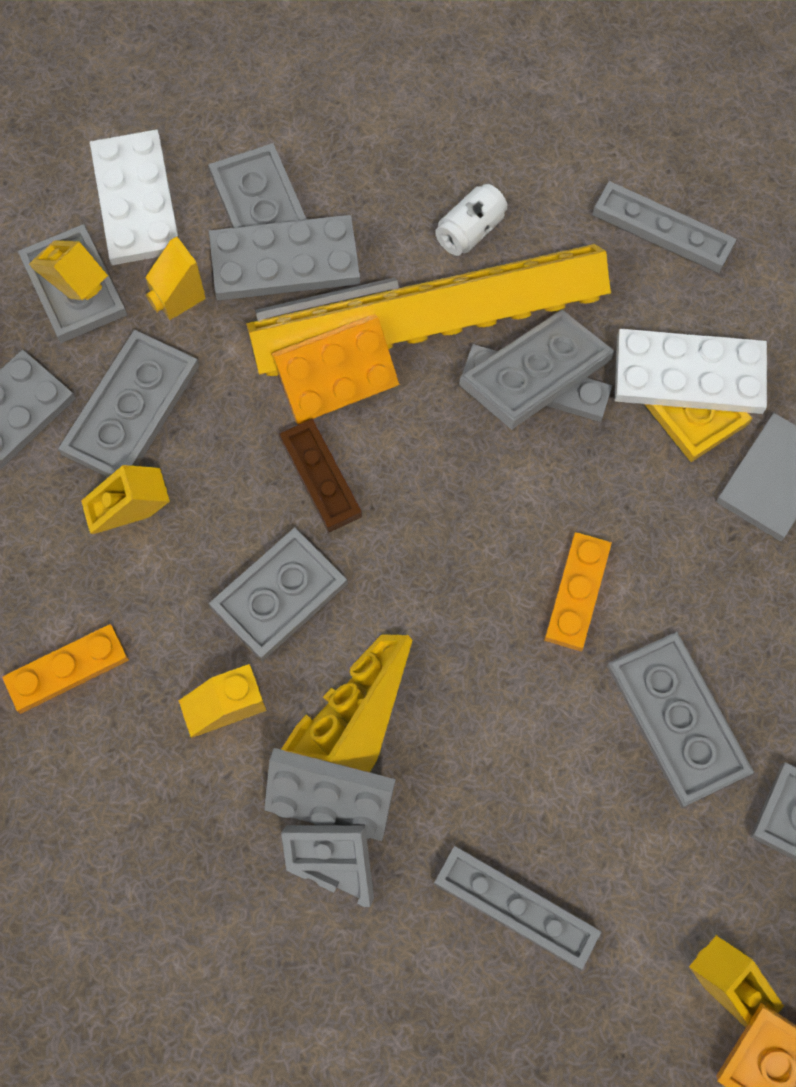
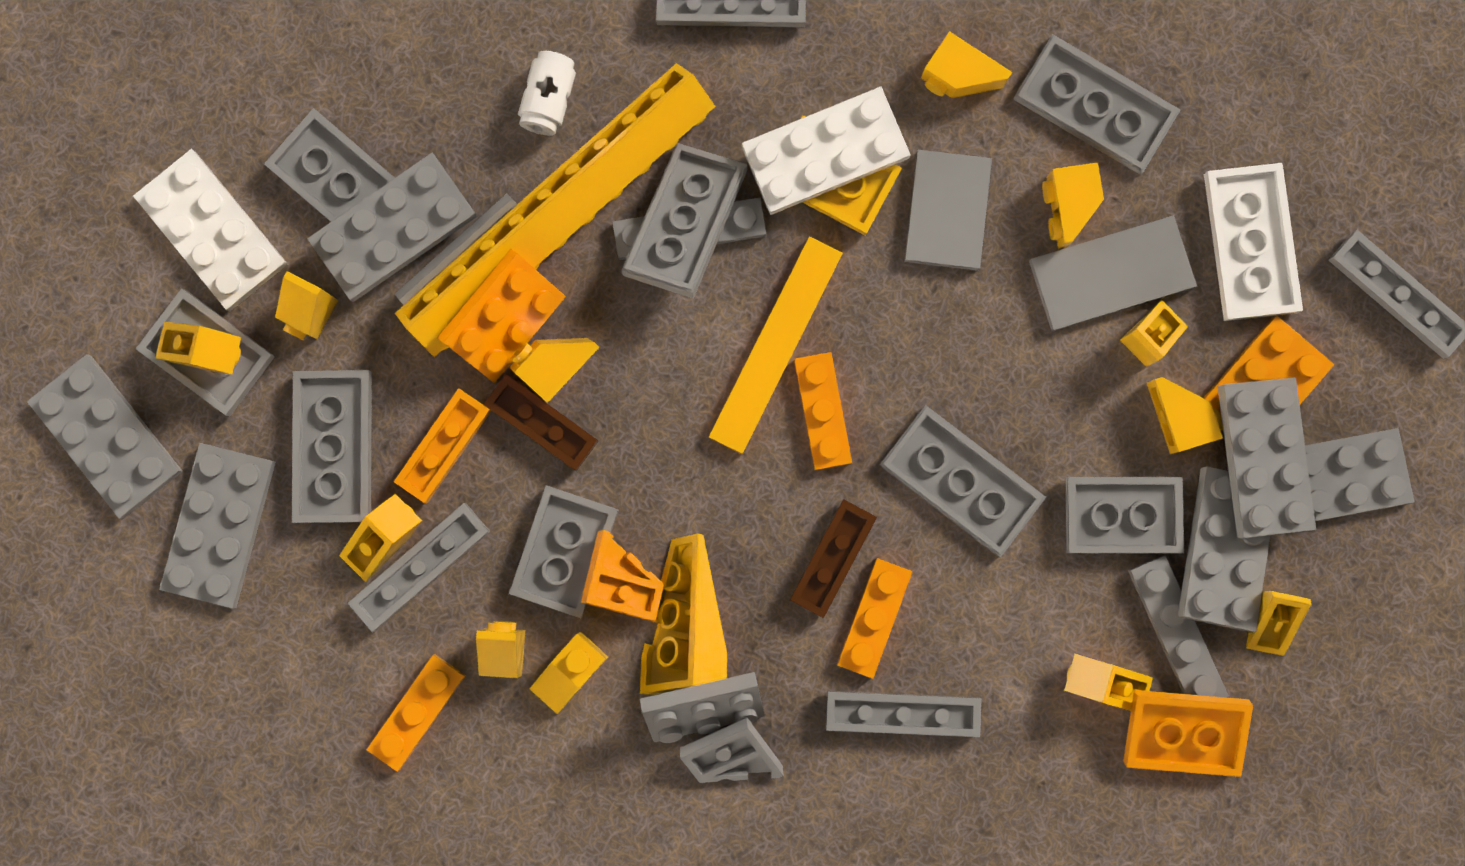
camera: 25 degrees left, 15 degrees up
(143, 542) = (419, 567): none -> light grey plate
(172, 645) = (500, 650): none -> yellow slope
(223, 452) = (442, 446): none -> light orange plate
(314, 644) = (620, 582): none -> light orange wing
(355, 427) = (551, 363): none -> yellow slope
(521, 725) = (833, 558): none -> reddish brown plate
(533, 802) = (874, 618): none -> light orange plate
(562, 515) = (775, 345): none -> yellow tile

